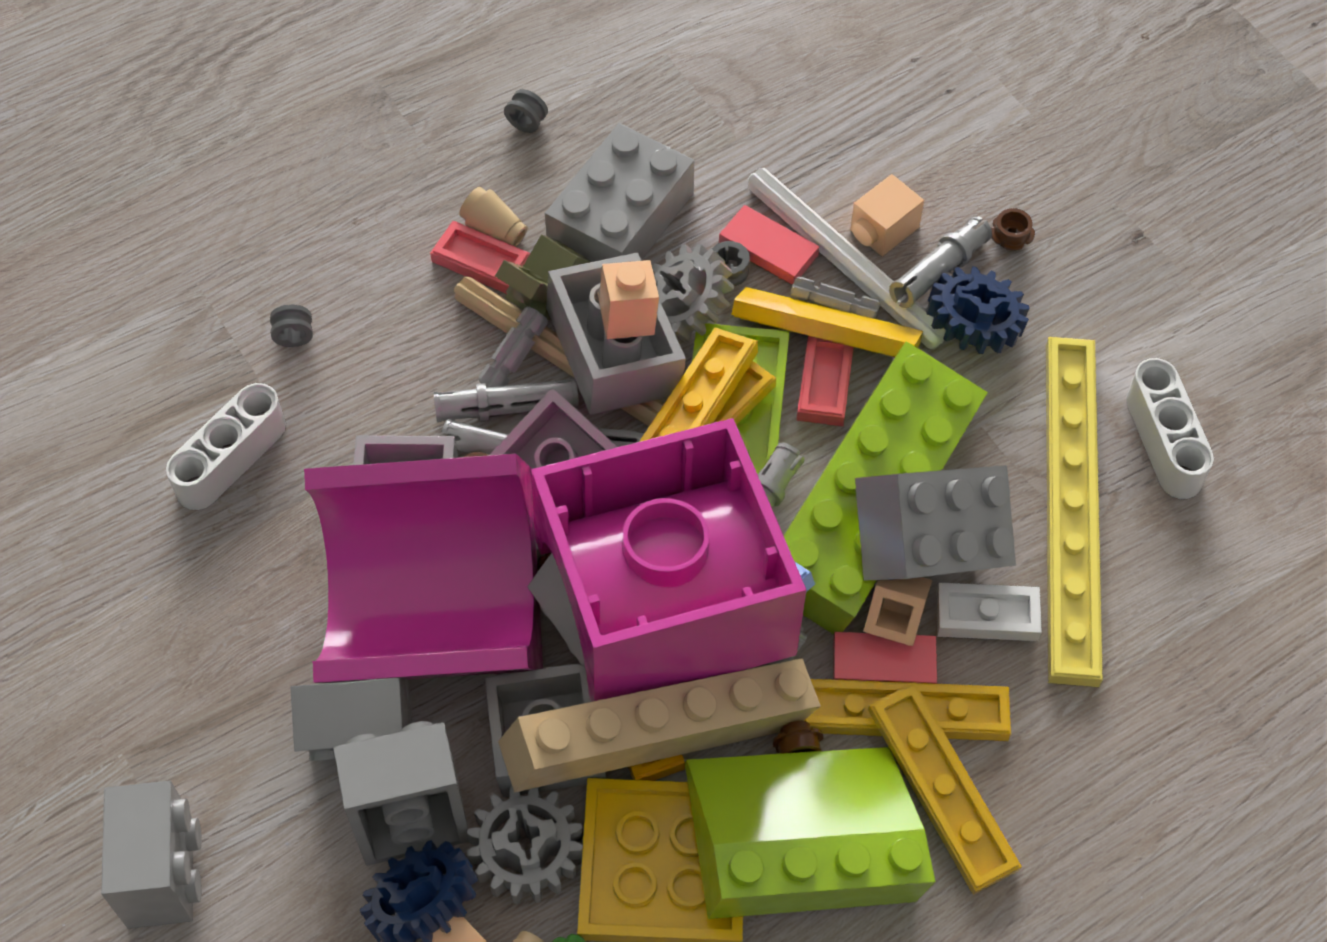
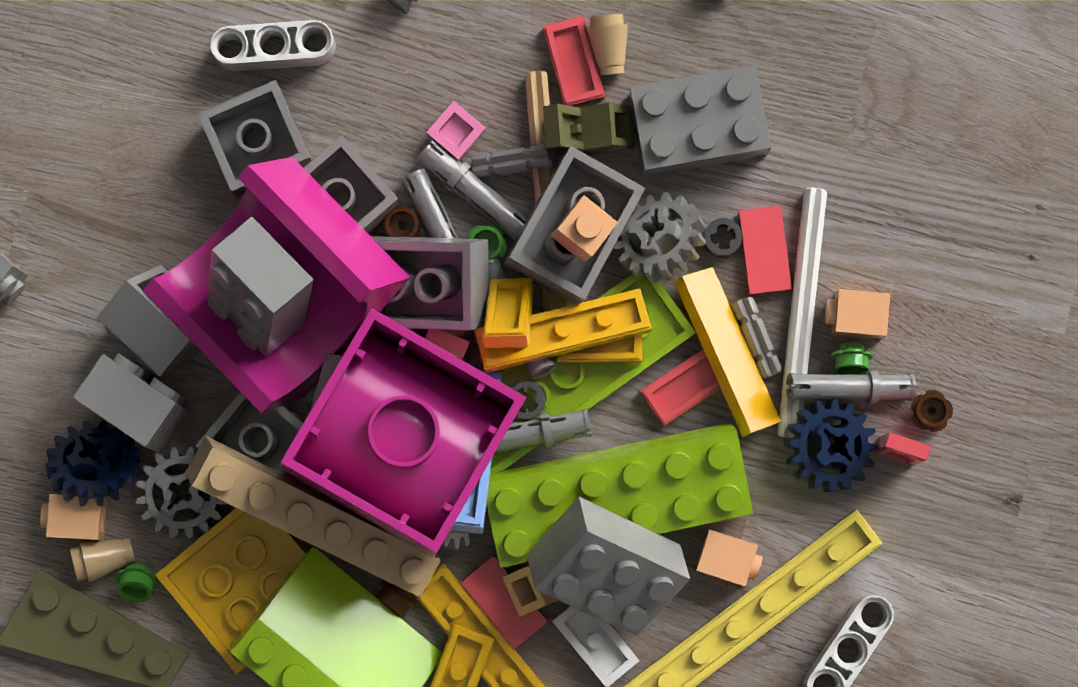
camera: 45 degrees right, 25 degrees up
(274, 519) = (252, 131): none -> light grey brick
(415, 559) = (258, 287): none -> light grey brick
(443, 371) = (456, 131): none -> bright pink plate
(638, 421) = (508, 313): none -> yellow tile
(915, 247) = (851, 359): none -> bright green plate
(1008, 444) = (728, 558): none -> light nougat brick
(1030, 253) = (902, 449): none -> coral tile

